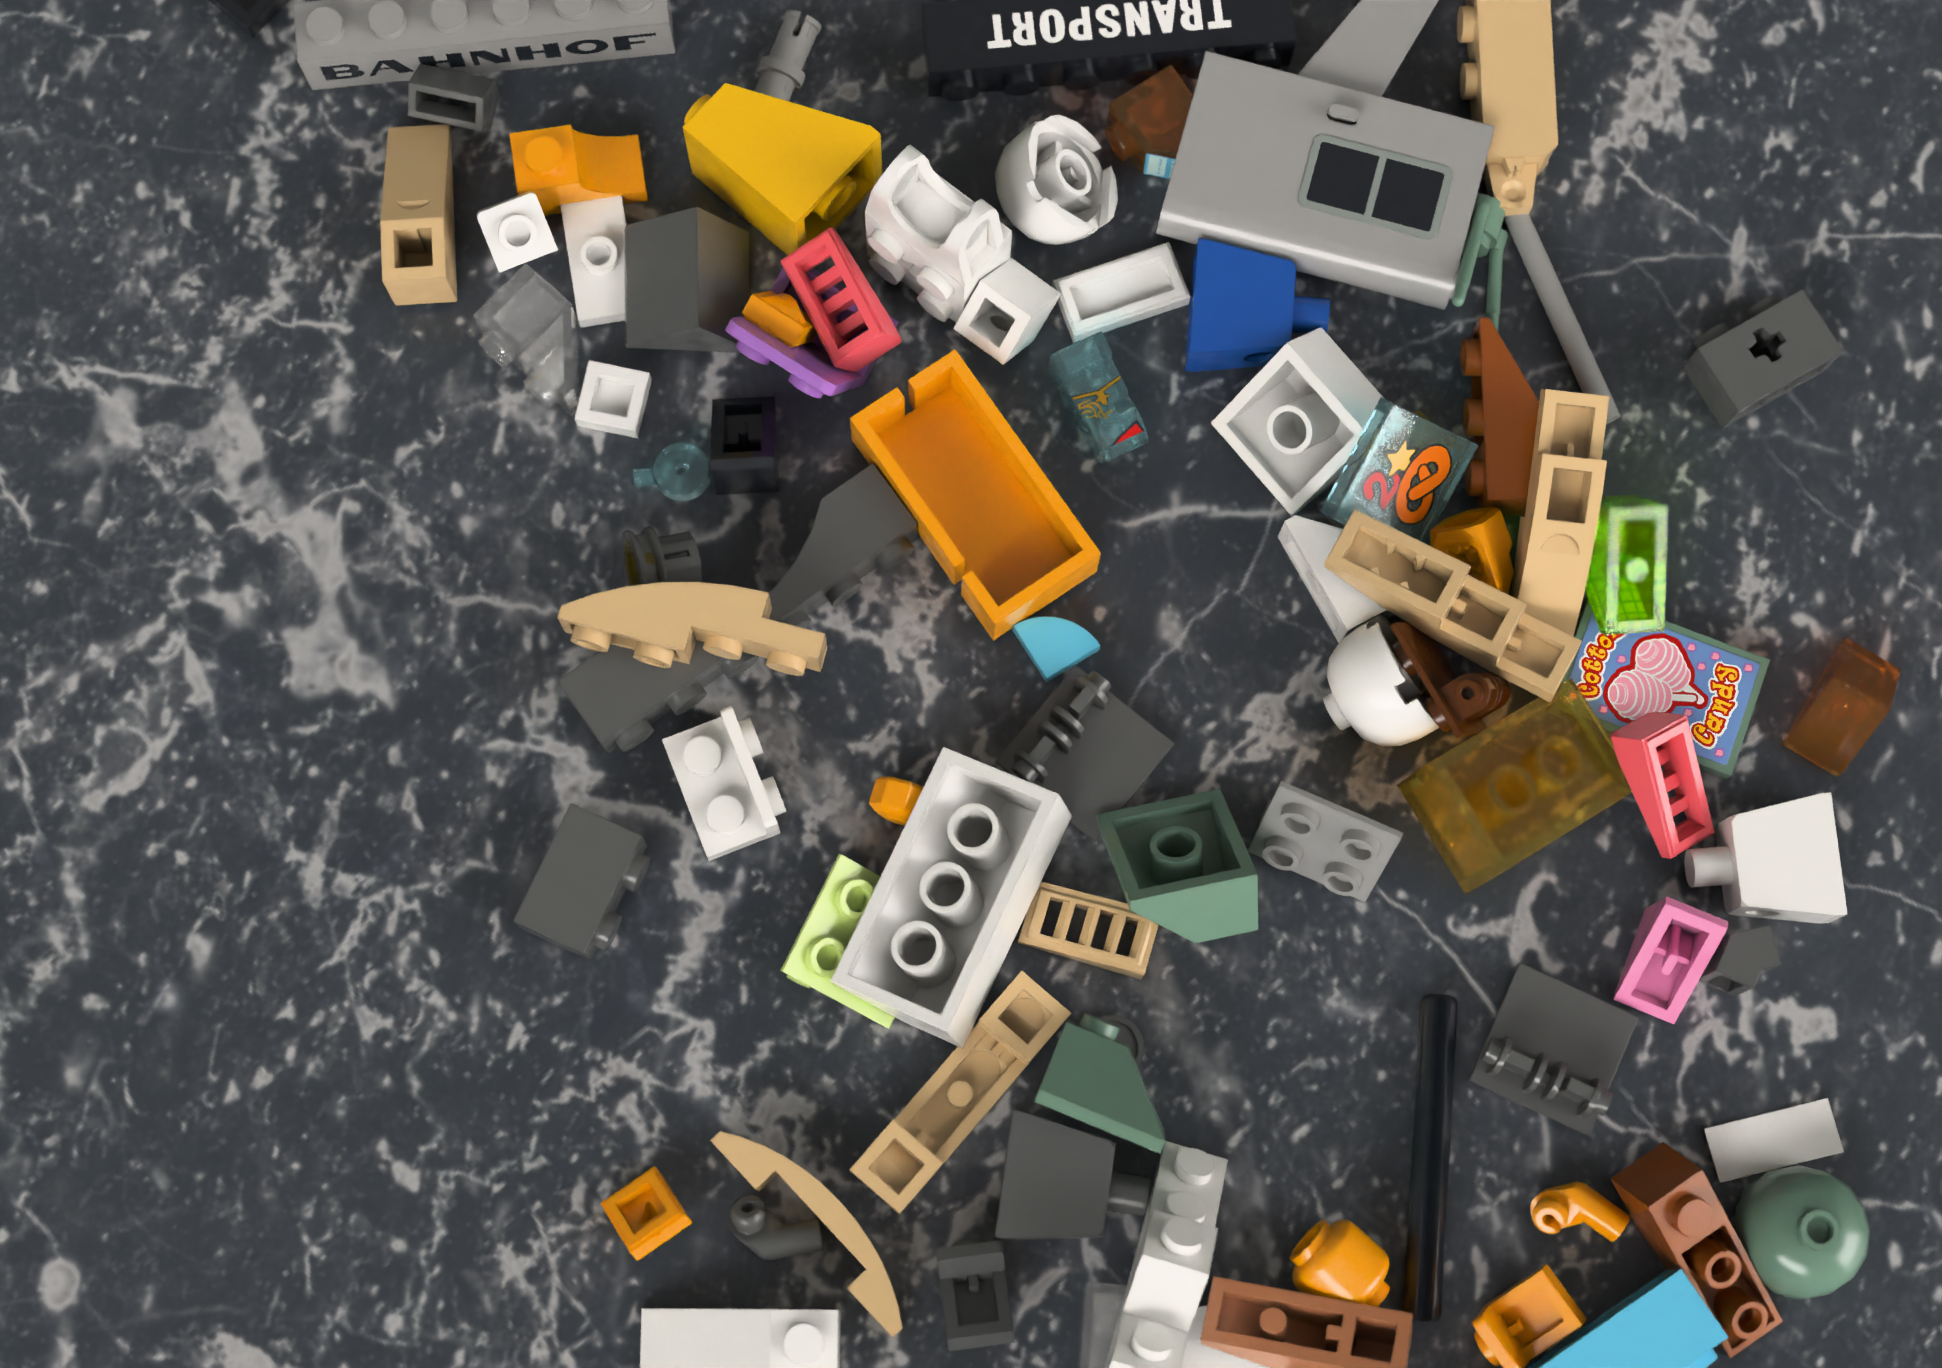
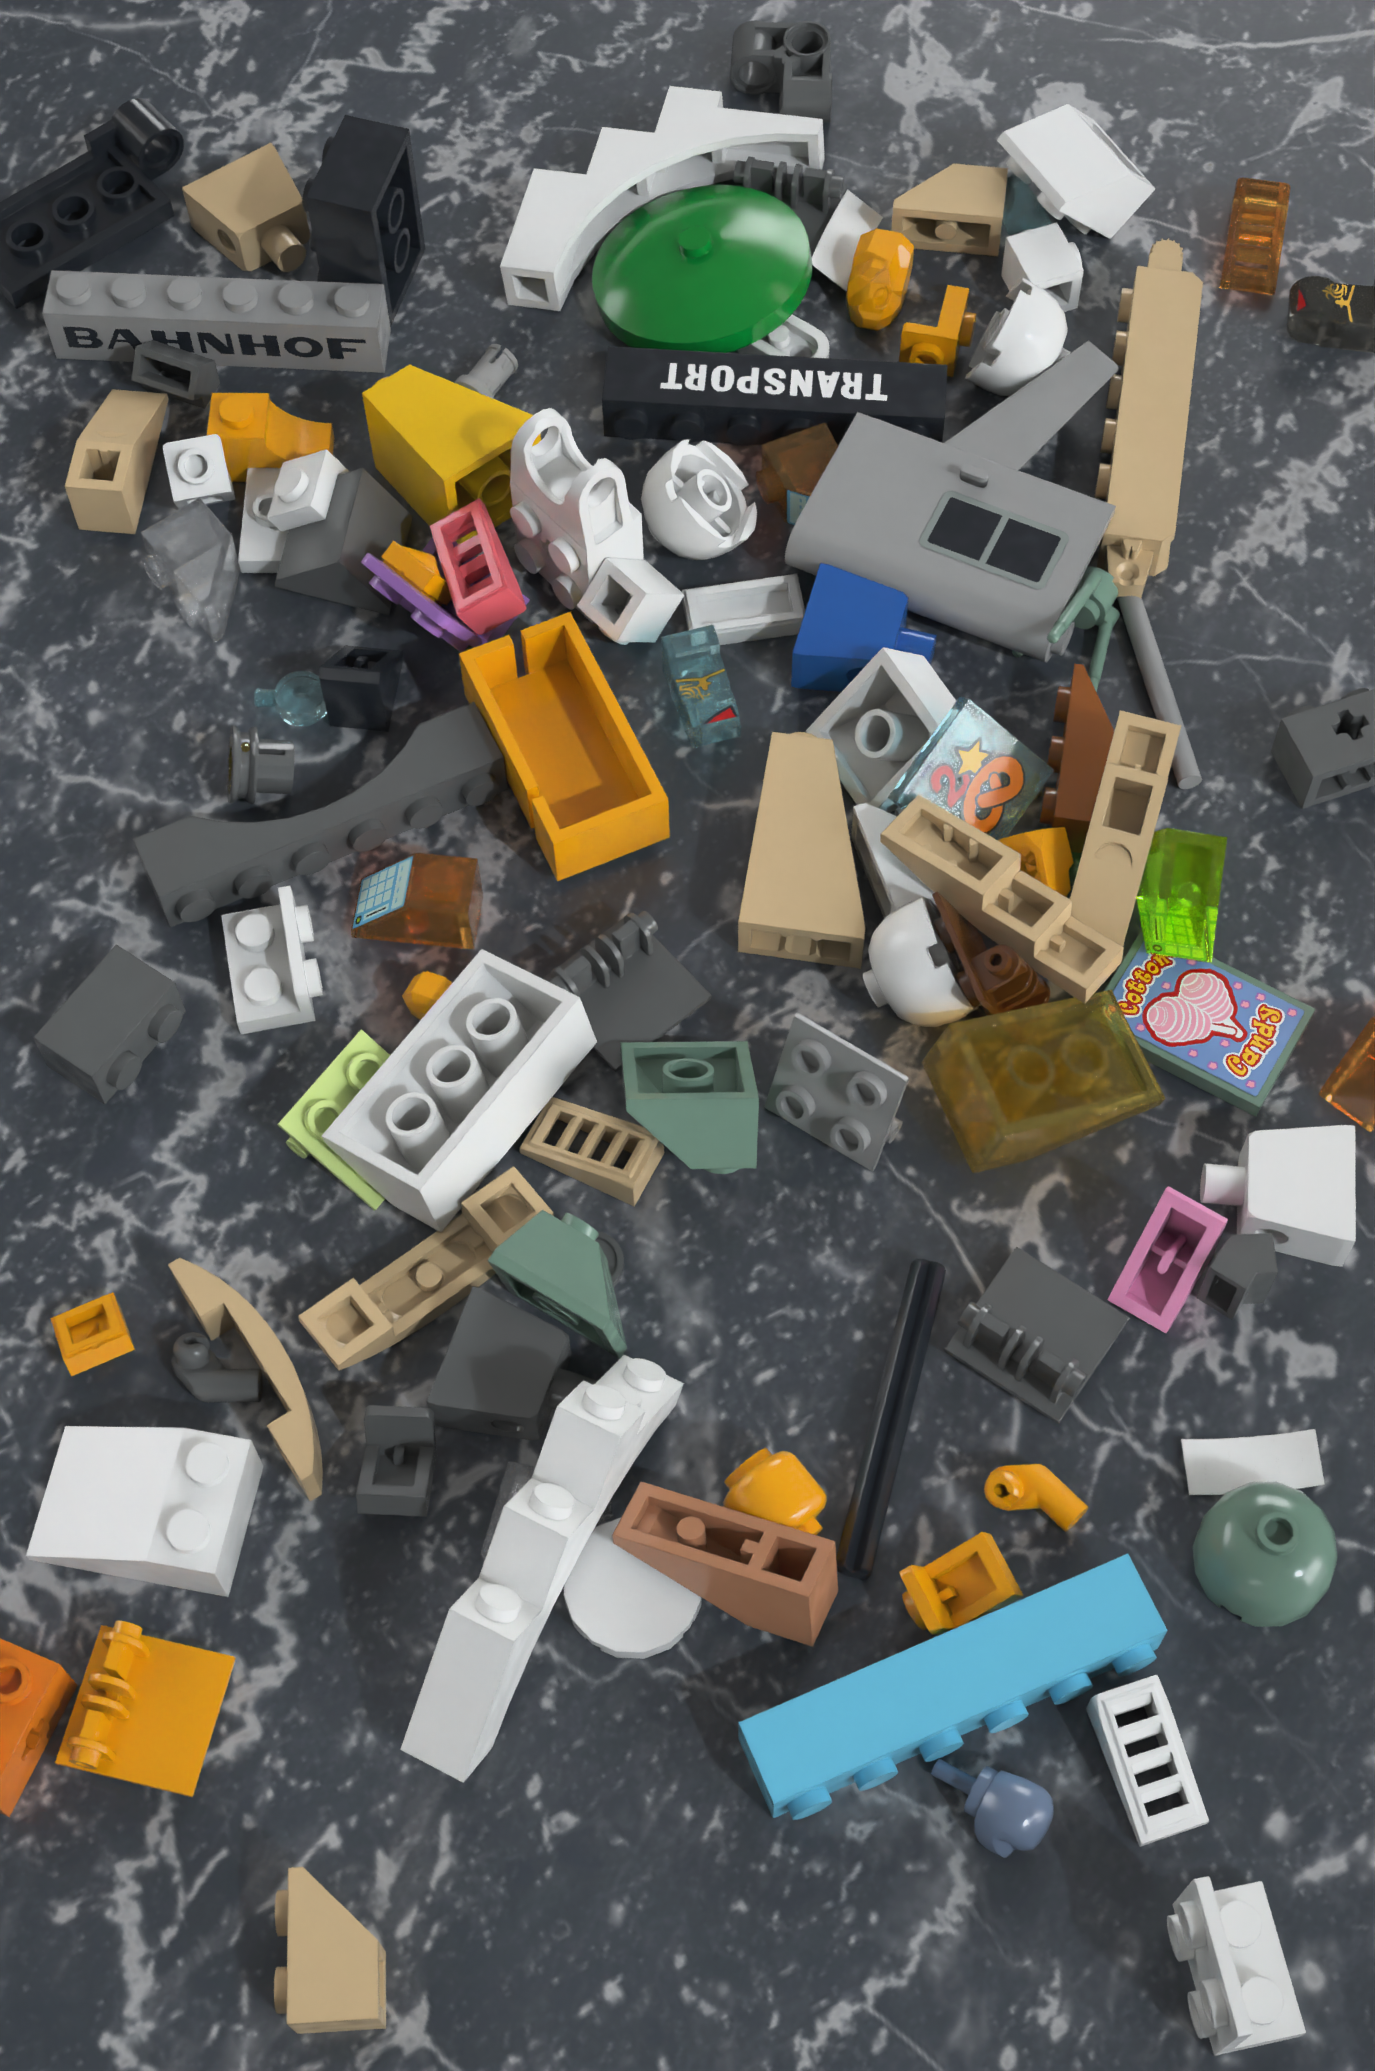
camera: 15 degrees right, 15 degrees down
(613, 399) = (254, 631): white tile -> none
(637, 233) = (304, 490): none -> white bracket
(668, 618) = (252, 790): tan slope -> none
(860, 693) = (421, 902): none -> clear orange slope
(1054, 644) = (615, 892): medium azure tile -> none
(1238, 582) = (801, 866): none -> tan slope
(1641, 751) = (1167, 1082): coral slope -> none
(1692, 1233) = (1144, 1517): dark orange slope -> none

